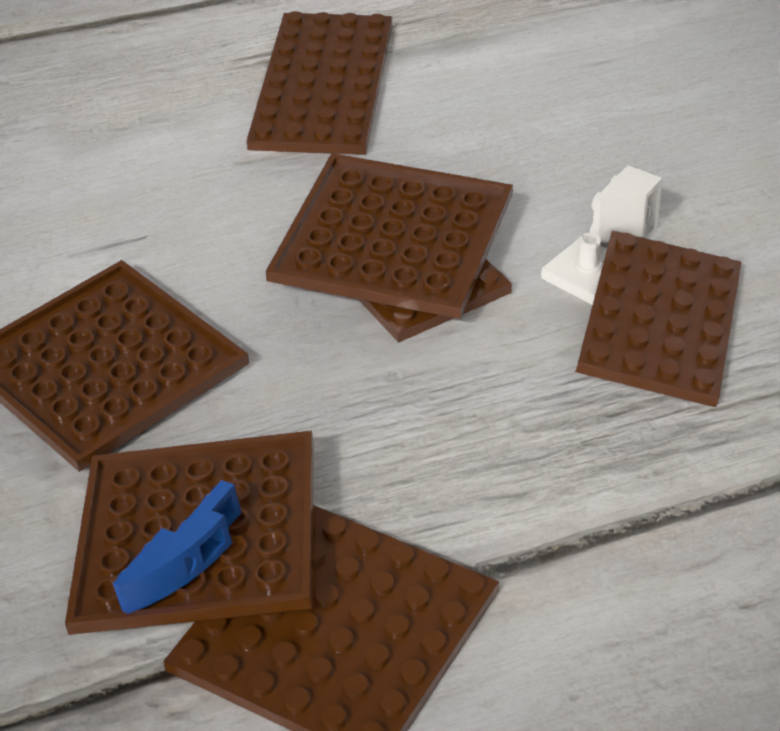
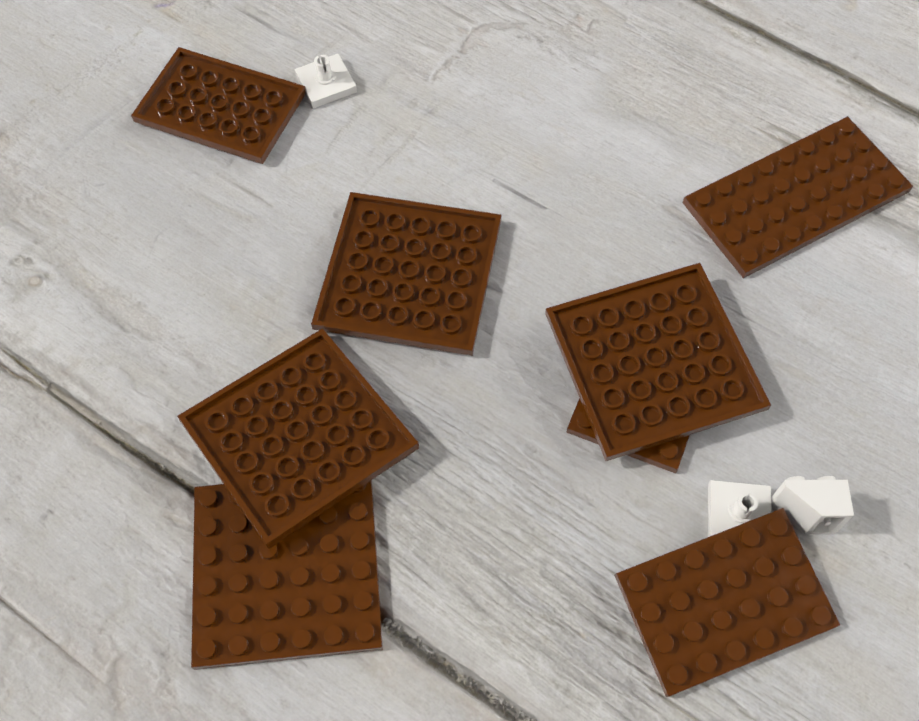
camera: 55 degrees right, 20 degrees up
(179, 556) = (247, 444): blue slope -> none

